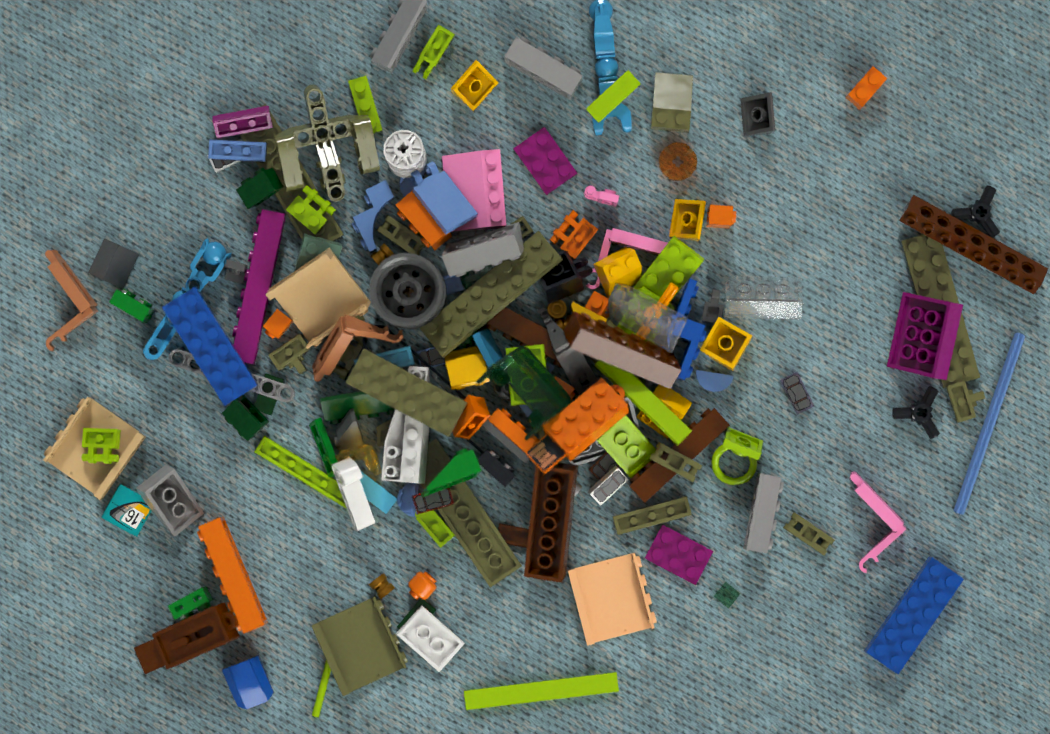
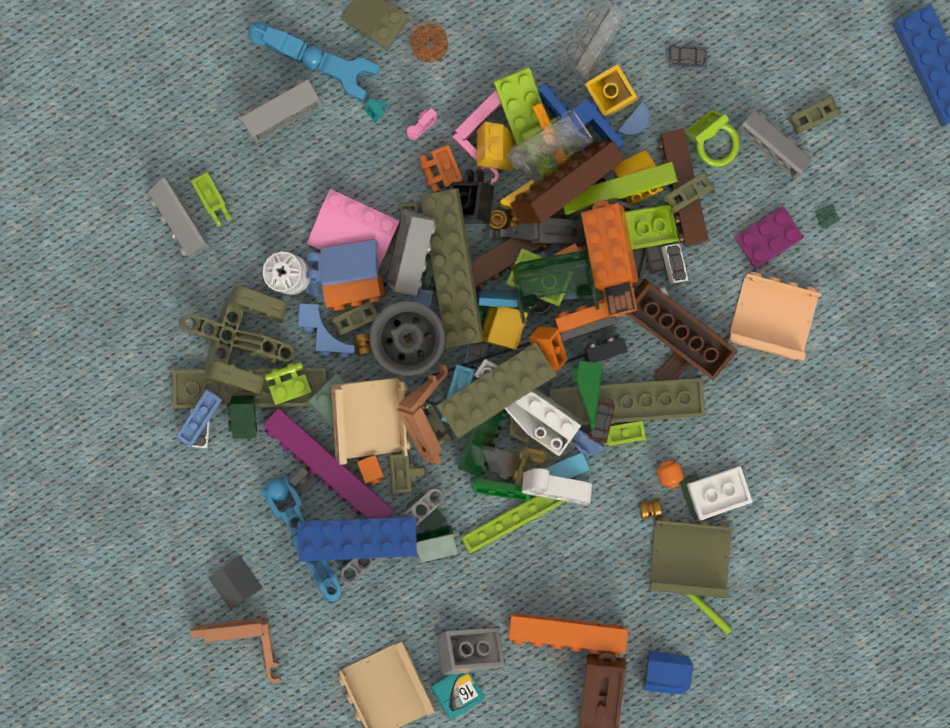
camera: 60 degrees left, 0 degrees up
(100, 438) = (382, 680): lime plate -> none
(139, 309) = (276, 590): green piece -> none
(190, 605) = (572, 686): green piece -> none
(242, 122) = (176, 399): magenta slope -> none
(364, 101) = (219, 283): lime plate -> none
(474, 85) = (261, 180): yellow slope -> none
(541, 691) = (819, 423): lime tile -> none
(545, 161) = (362, 157): magenta plate -> none
(592, 148) = (375, 109): none -> teal tile
(598, 304) = (514, 180): orange brick -> none
(613, 96) = (341, 64): lime tile -> none
(652, 515) = (722, 240): olive plate -> none
(687, 219) = (484, 62): yellow slope -> none
(712, 309) = (575, 87): dark grey plate -> none
(720, 216) = (498, 32): orange brick -> none
(884, 511) = (836, 39): bright pink hinge -> none

